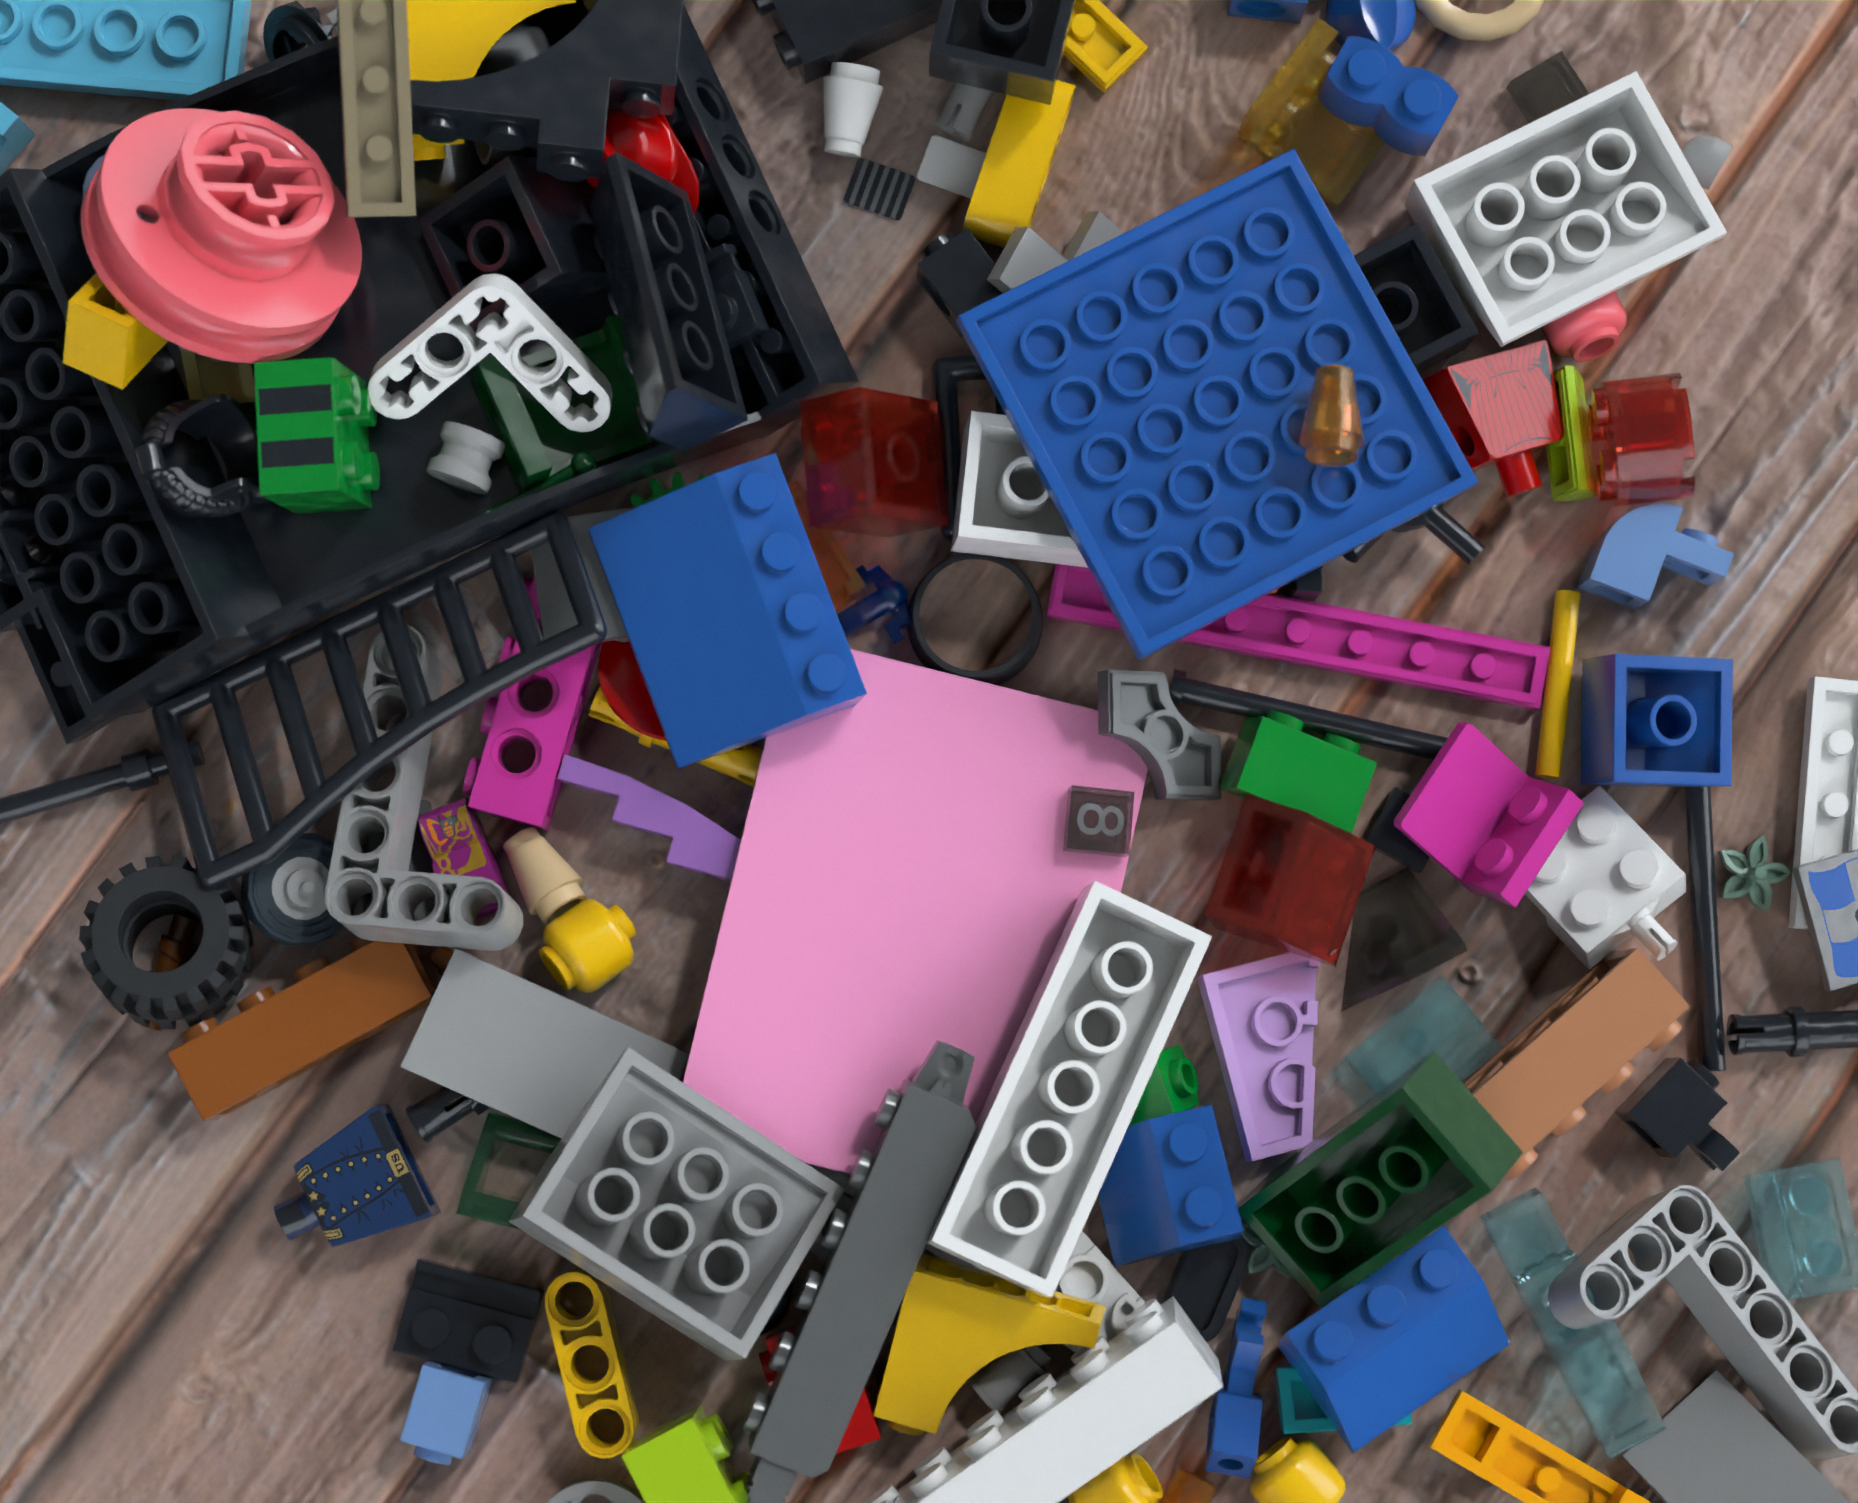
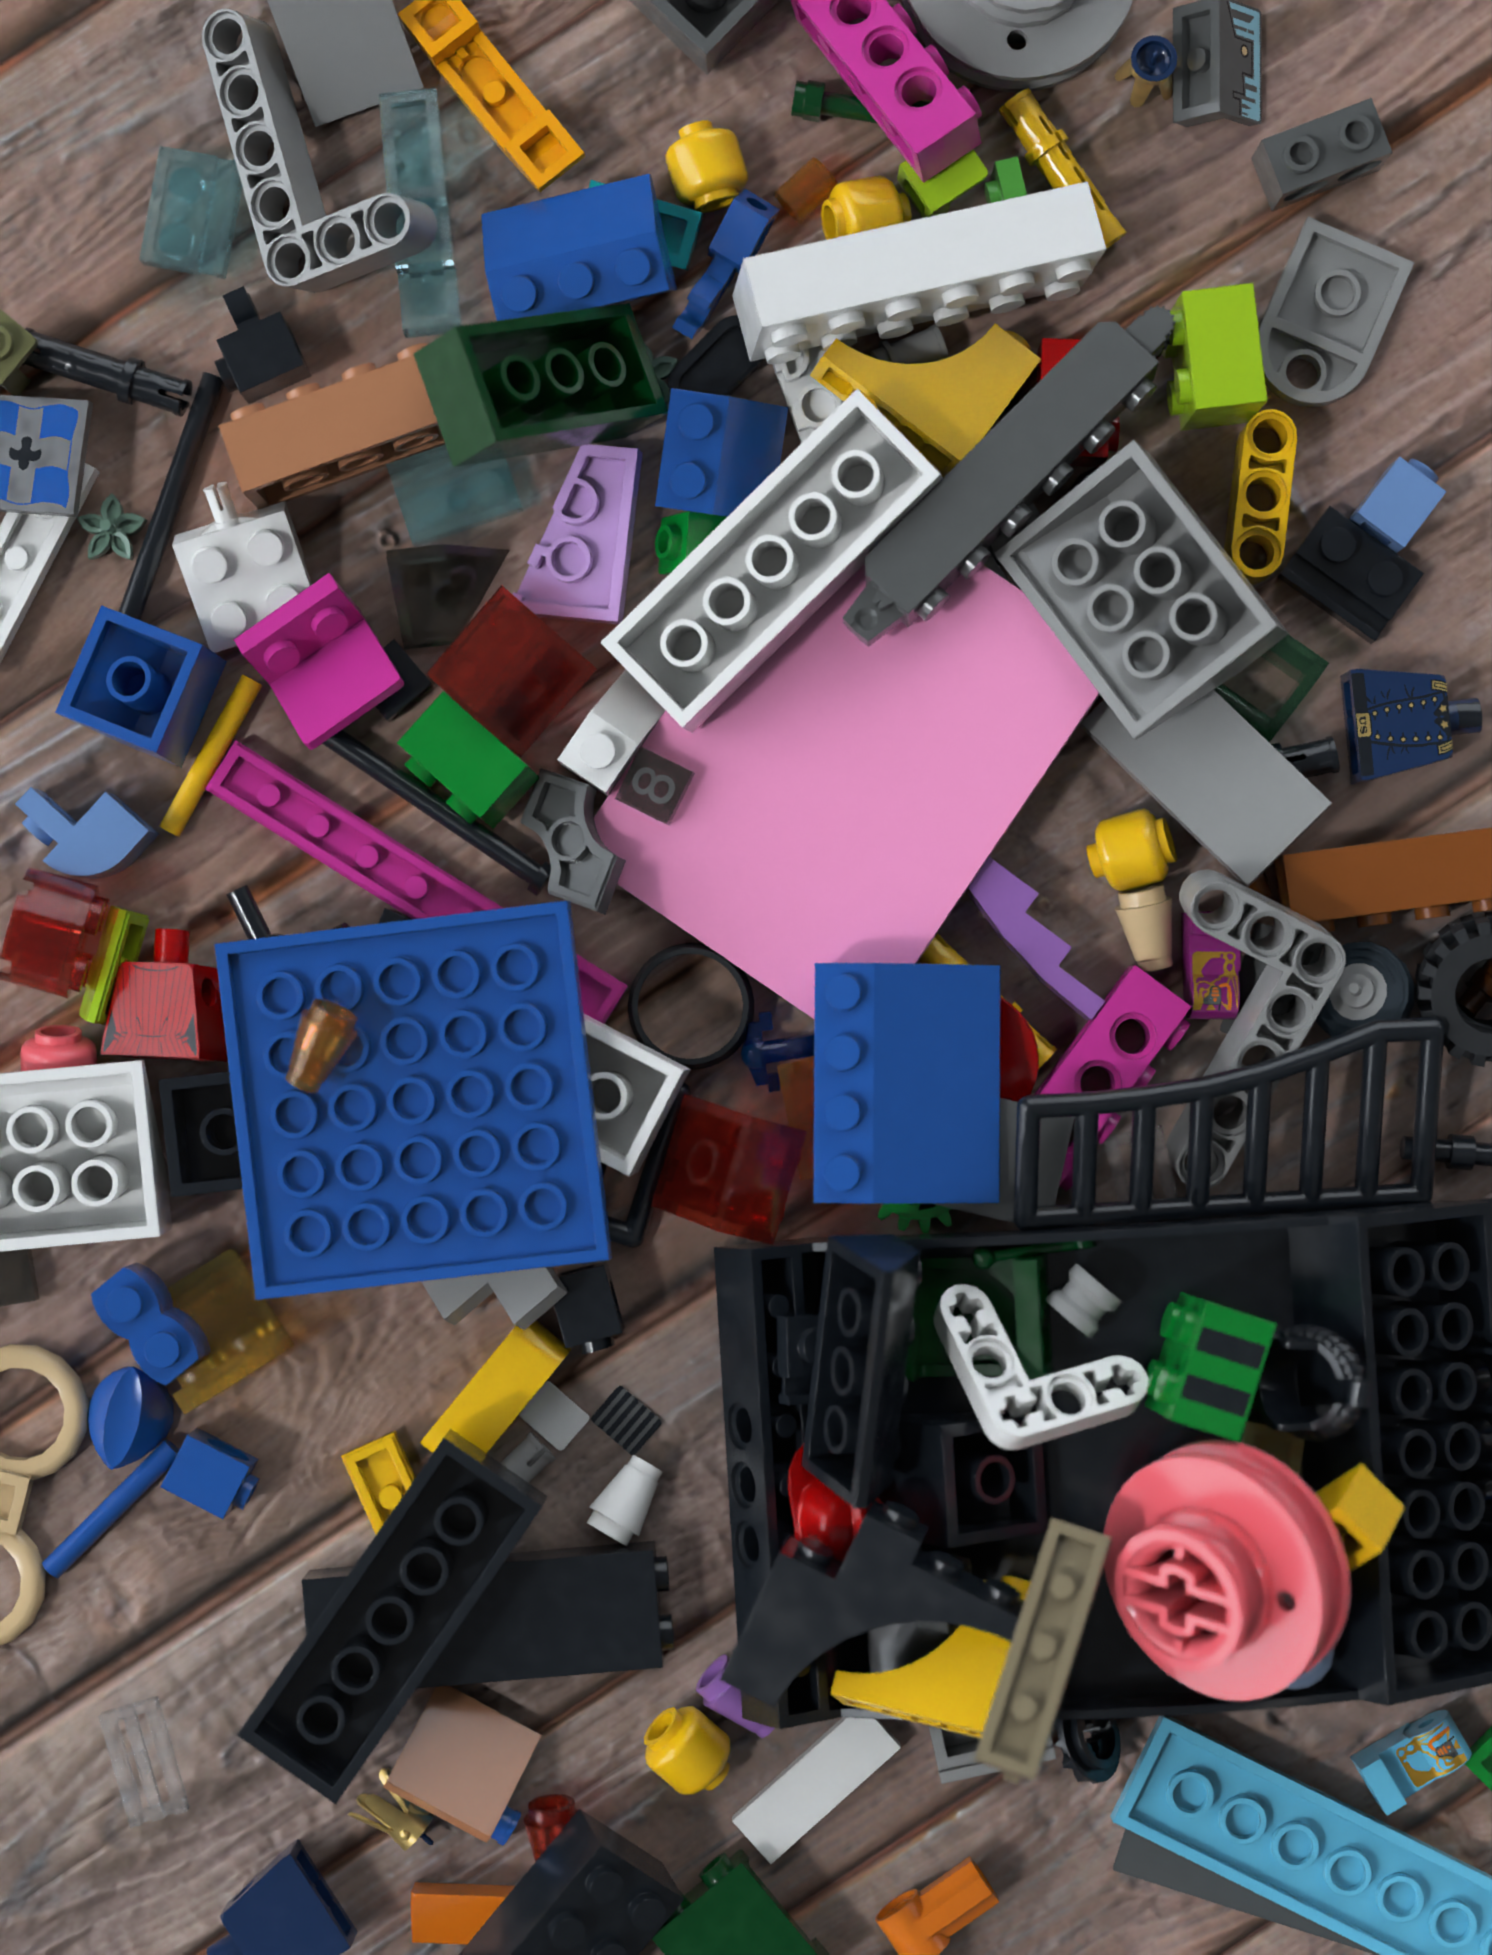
camera: 155 degrees left, 5 degrees up
(1164, 852) = (612, 734): none -> white slope

